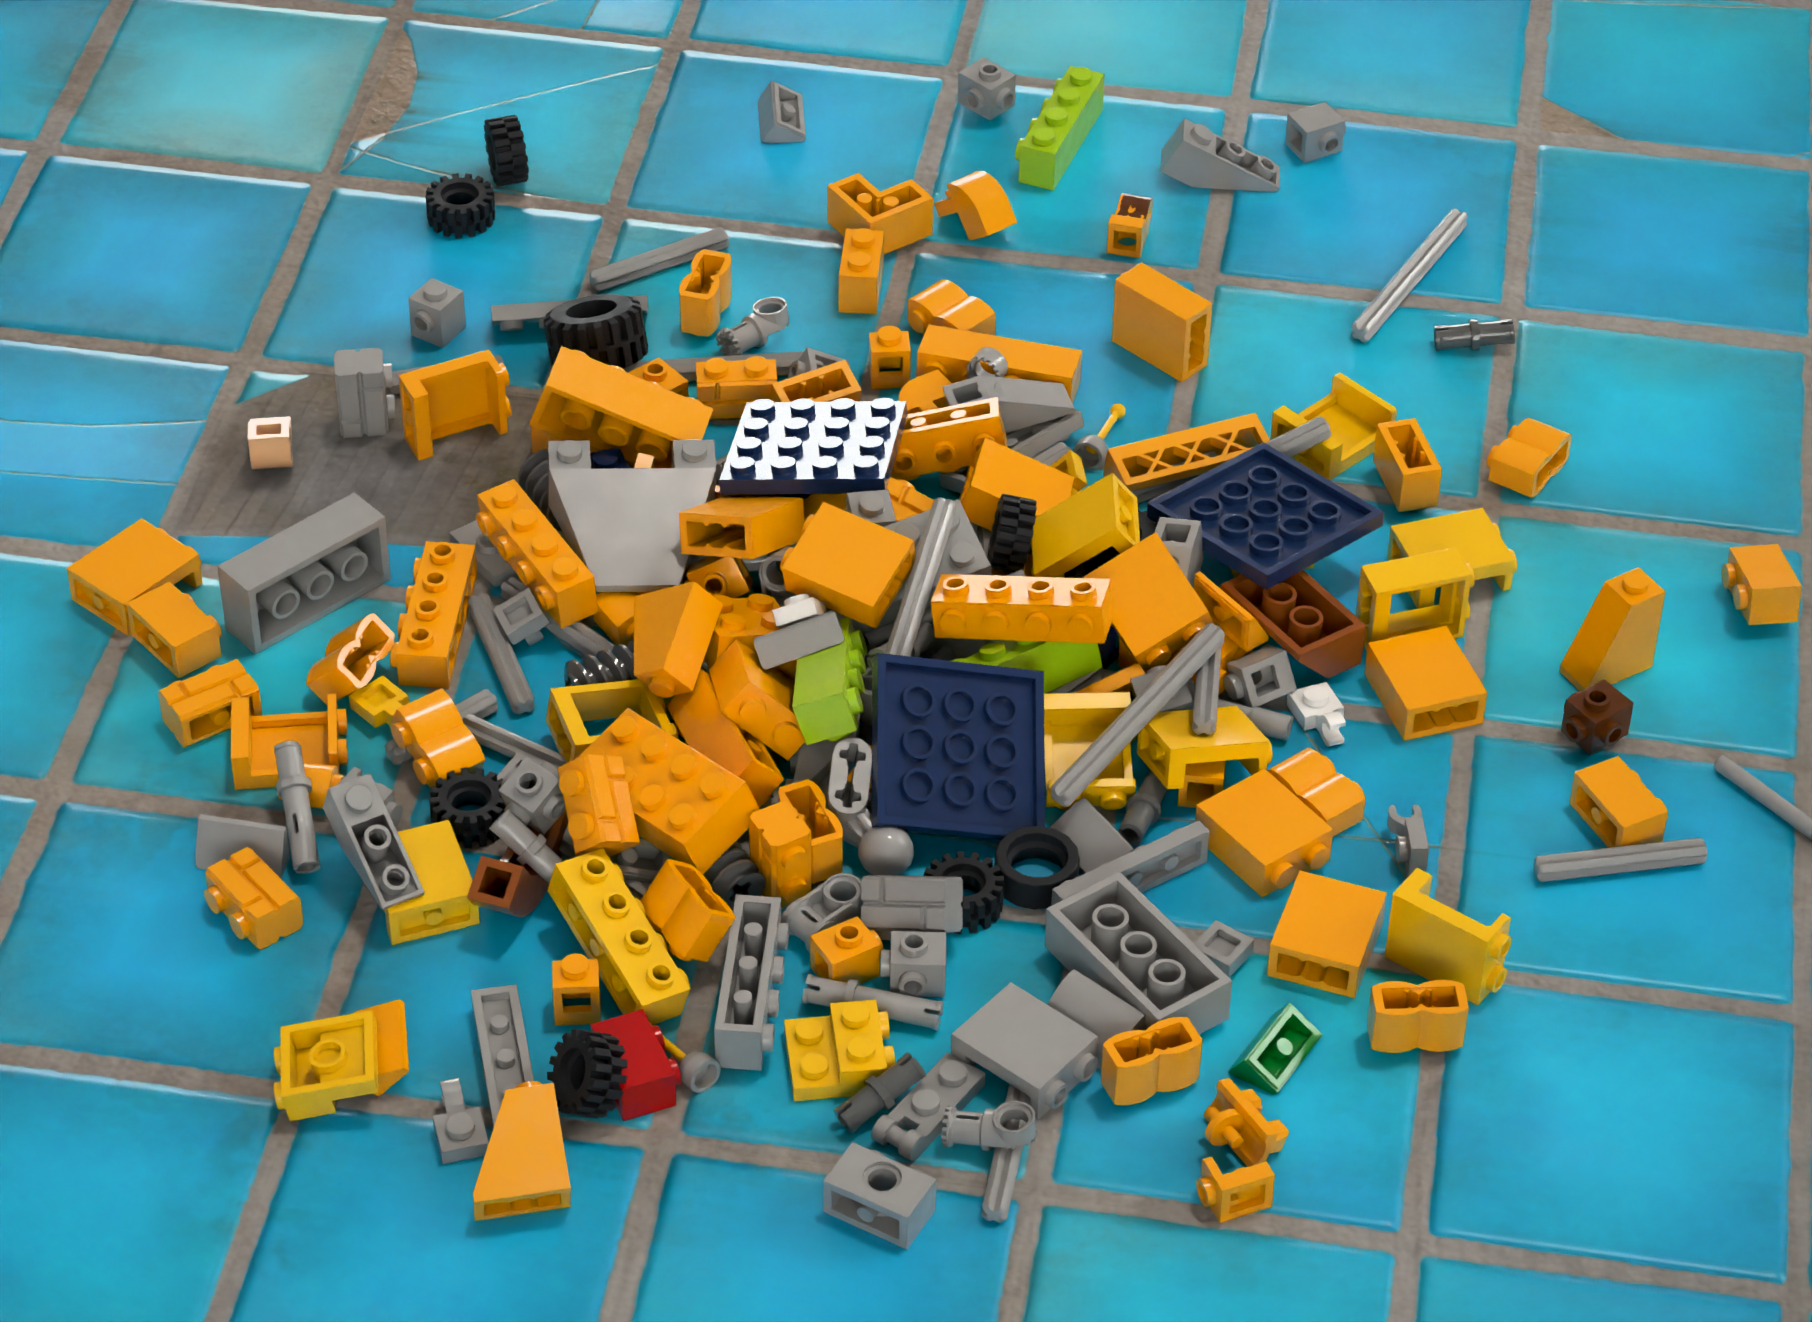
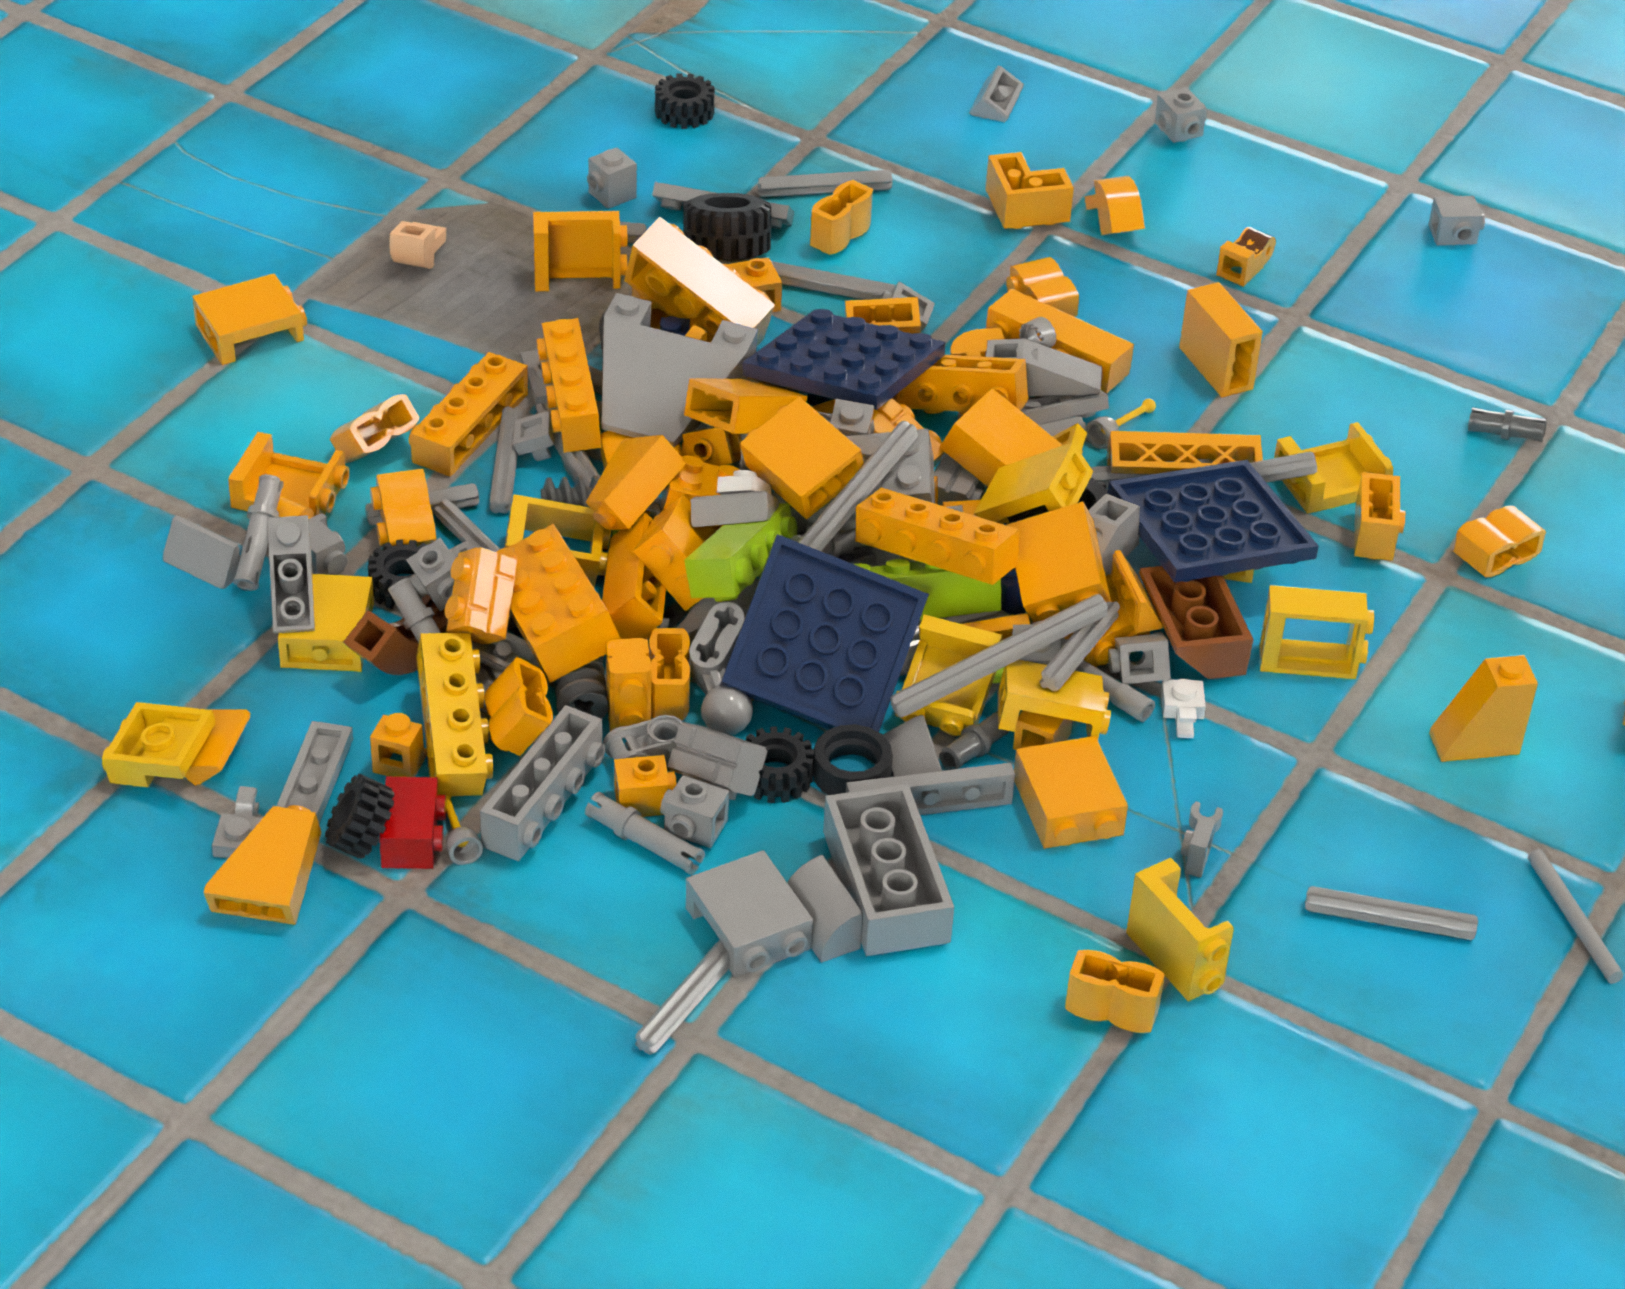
camera: 20 degrees right, 0 degrees up
(174, 629) = (252, 367): light orange brick -> none
(202, 703) = (234, 428): light orange brick -> none
(253, 898) = (185, 596): light orange brick -> none
(304, 572) = (376, 350): light grey brick -> none
(361, 392) = (508, 222): light grey brick -> none
(378, 701) = (379, 463): yellow plate -> none
(506, 150) = (741, 65): black tyre -> none
(732, 384) = (812, 291): light orange brick -> none
(767, 317) = (882, 250): light grey connector -> none
(837, 1051) = (592, 866): yellow plate -> none
(861, 271) = (986, 234): light orange brick -> none
(879, 1092) = (602, 910): dark grey pin -> none
(879, 1195) = (552, 996): light grey brick -> none
(889, 350) = (967, 302): light orange brick -> none
(922, 1109) = (642, 936): light grey plate -> none
(987, 1128) = (674, 967): light grey connector -> none
(1012, 533) = (972, 473): black tyre -> none
(1060, 127) = (1228, 162): lime brick -> none
(1151, 1061) = (851, 955): light orange brick -> none
(1210, 161) = (1348, 222): light grey slope -> none
(1225, 946) = (976, 880): light grey plate -> none
(1236, 1192) = (867, 1093): light orange bracket -> none
(1238, 1121) = (901, 1036): light orange hips -> none
(1276, 1050) = (979, 983): green slope -> none
(1322, 789) = (1141, 772): light orange brick -> none
(1326, 934) = (1074, 895): light orange brick -> none
(1409, 275) = (1476, 360): light grey axle -> none
(1425, 683) = (1291, 707): light orange brick -> none
(1468, 532) = (1394, 594): yellow panel -> none
(1597, 717) = (1432, 780): reddish brown brick -> none
(1618, 804) = (1413, 862): light orange brick -> none

